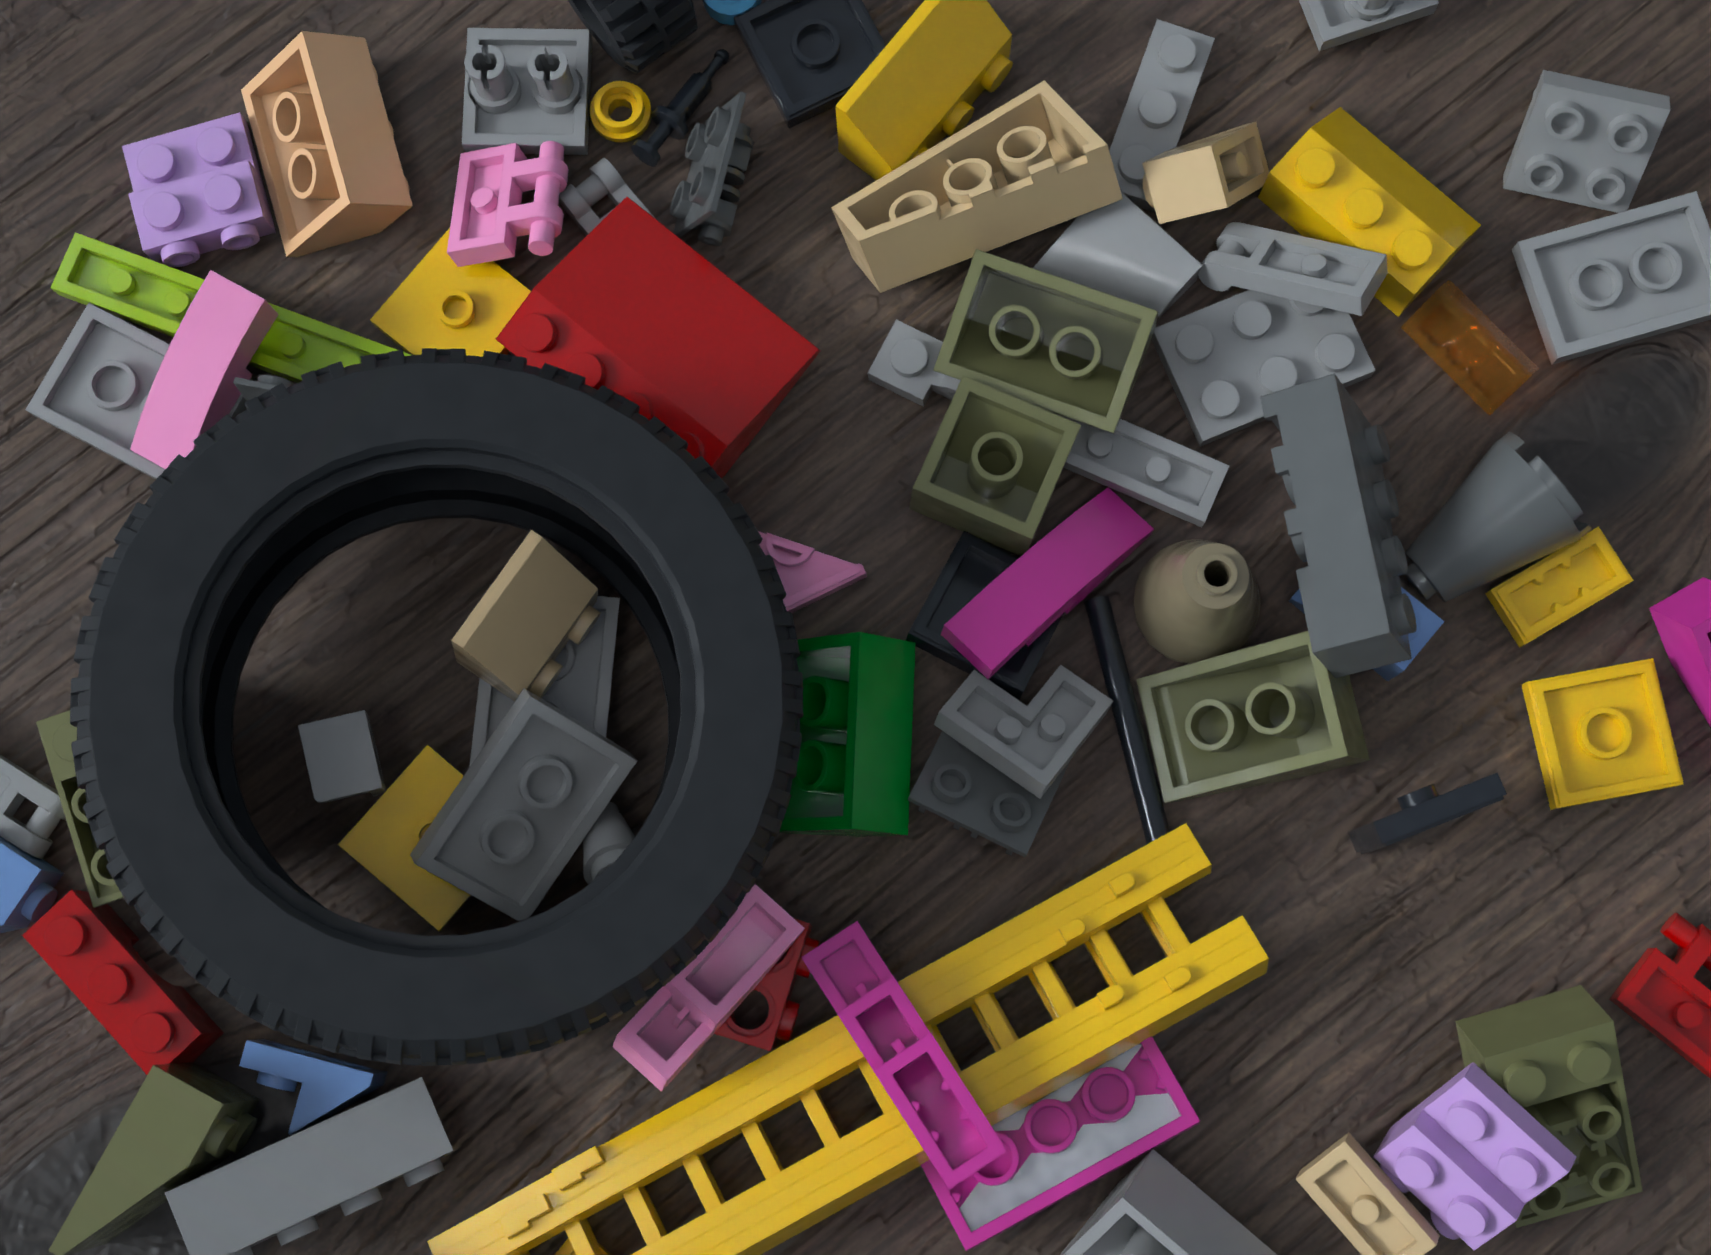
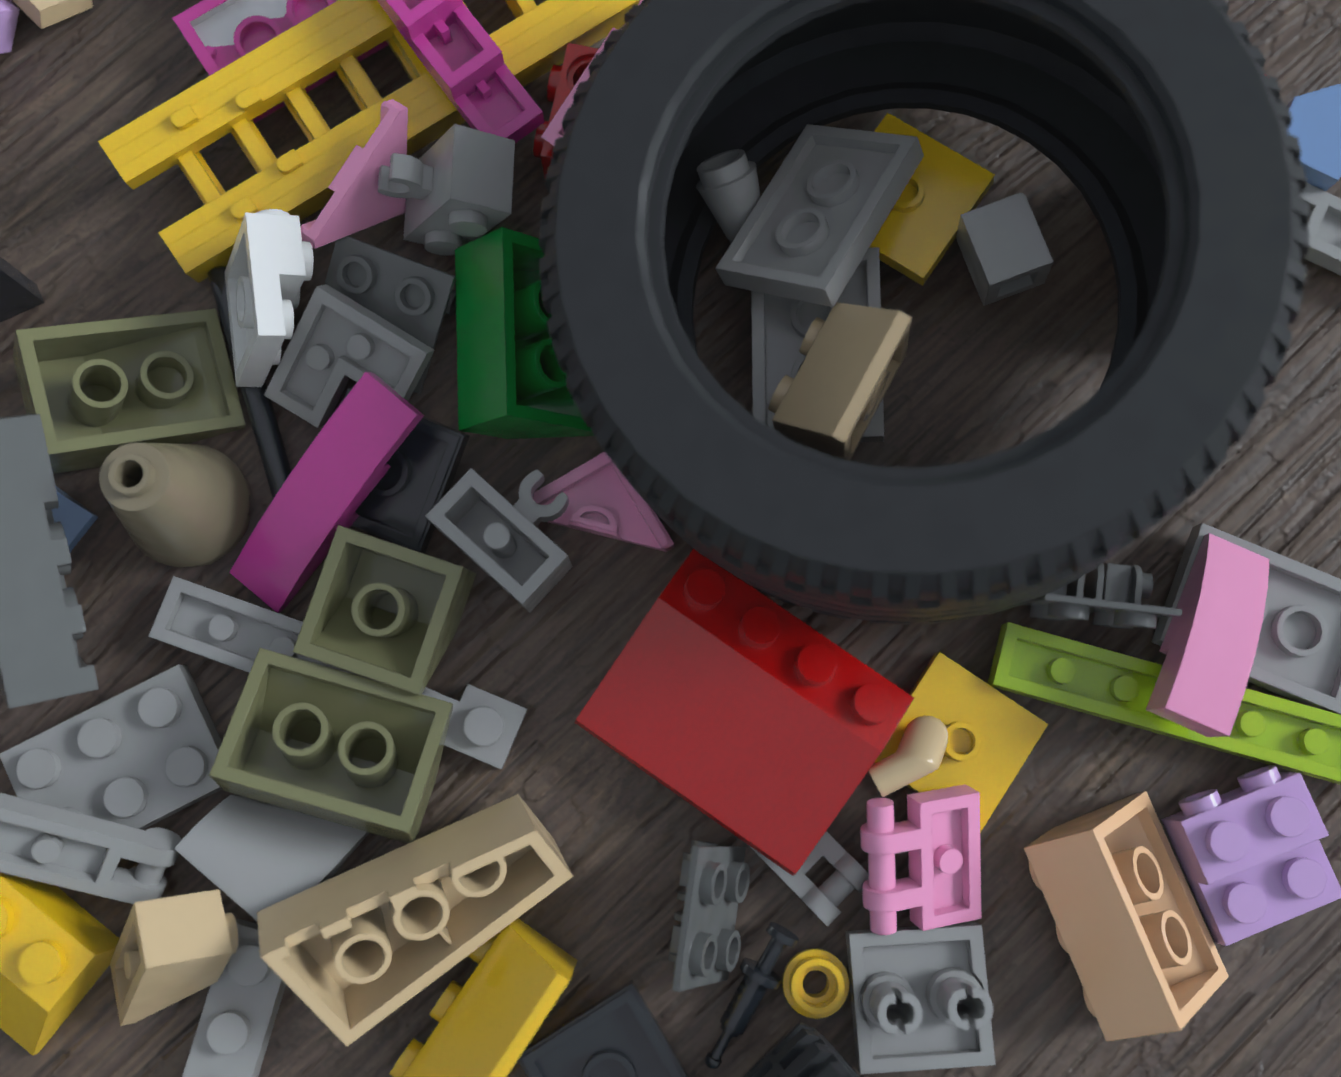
camera: 165 degrees right, 0 degrees up
(500, 289) = (916, 756): none -> tan arm
(874, 528) = (505, 536): none -> light grey brick
(900, 882) = (453, 188): none -> light grey brick
(995, 897) = (356, 196): none -> bright pink tile
(1110, 797) = (263, 289): none -> white plate

